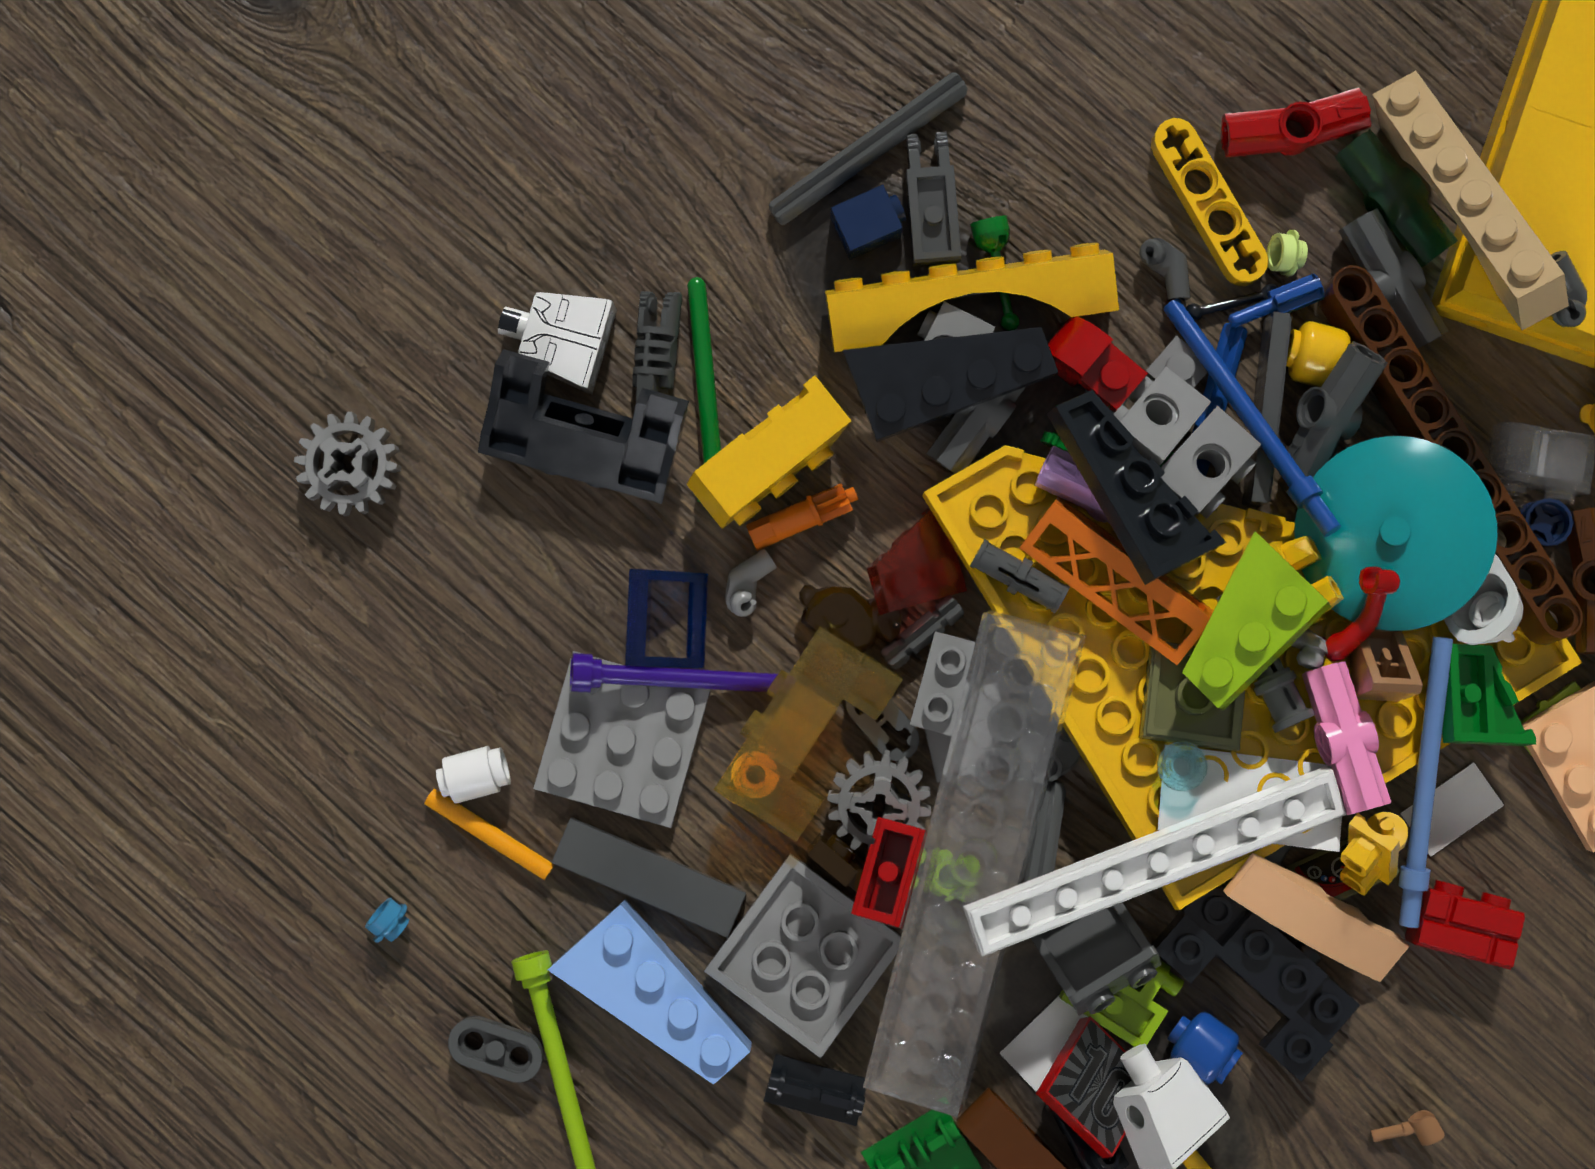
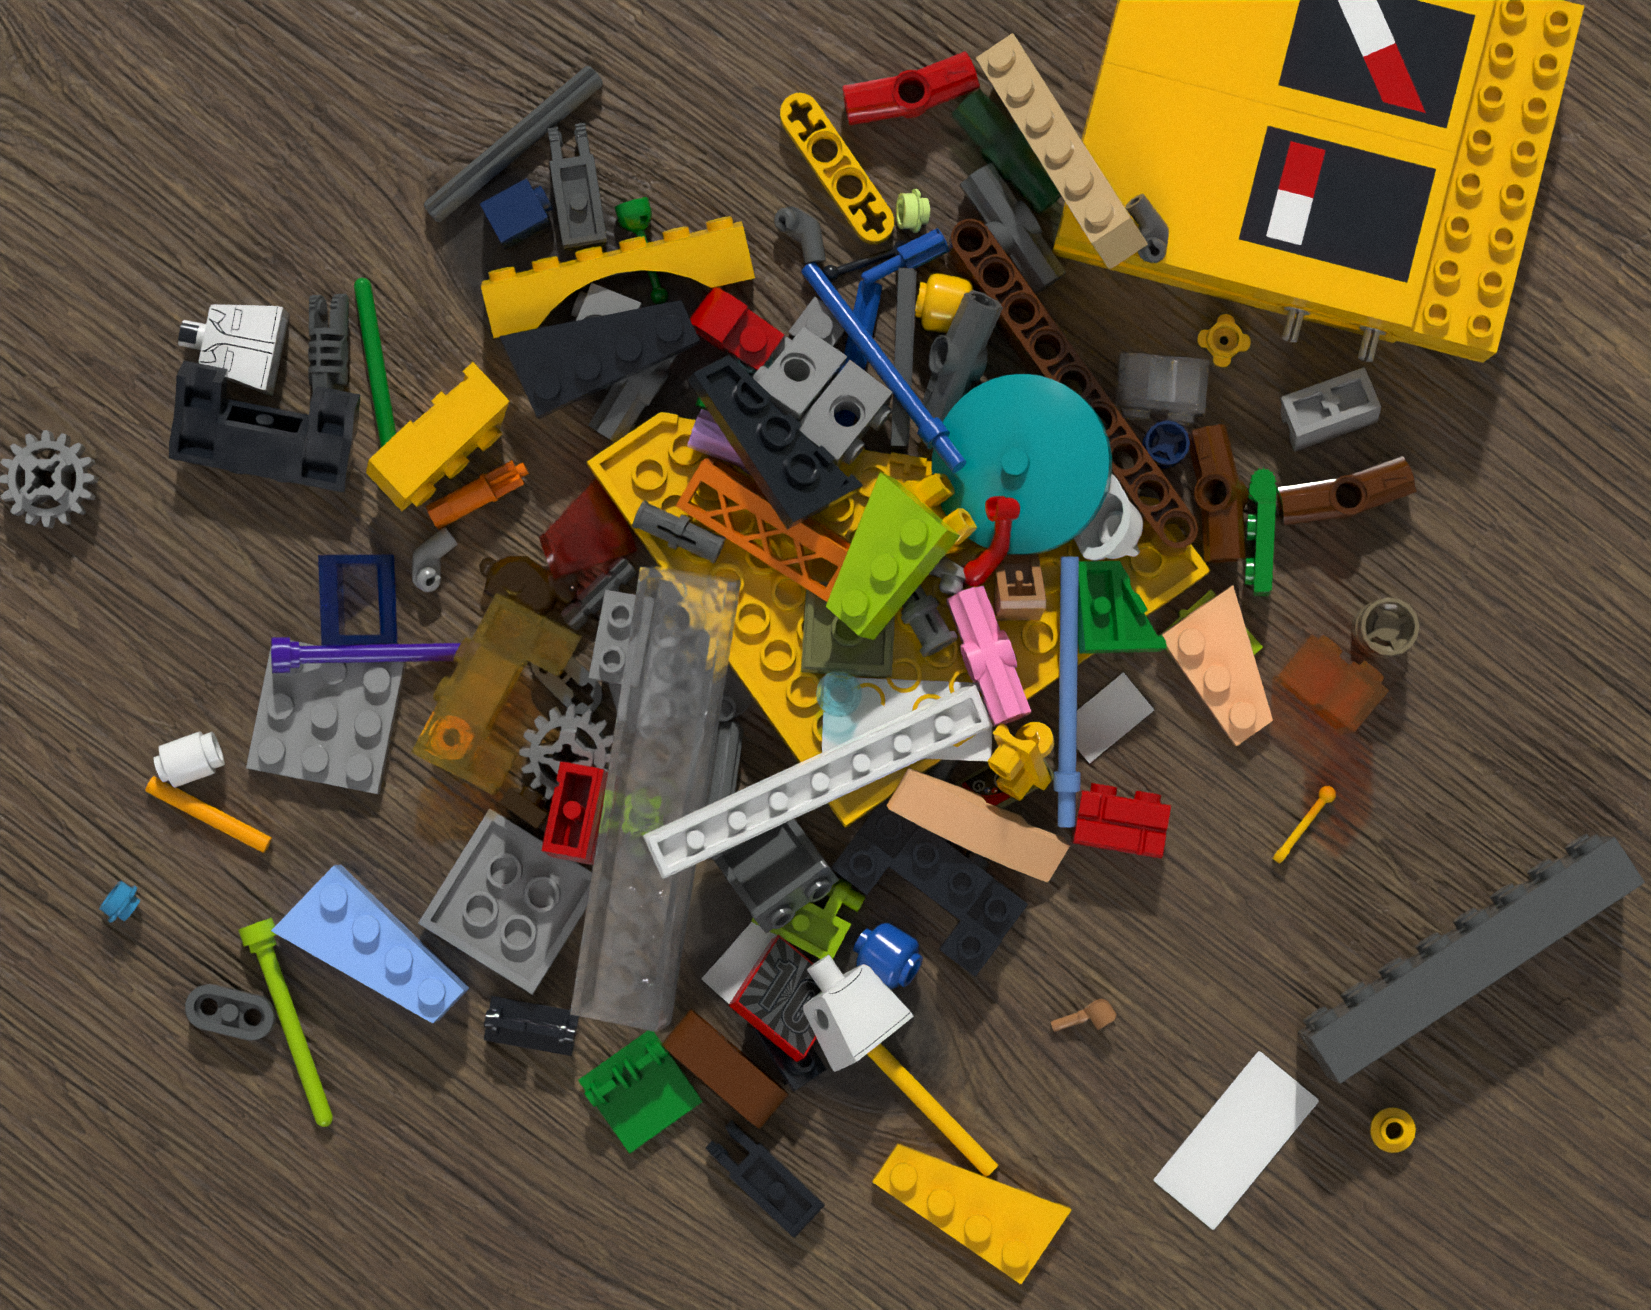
camera: 10 degrees left, 0 degrees up
(649, 877) = (361, 842): dark grey tile -> none

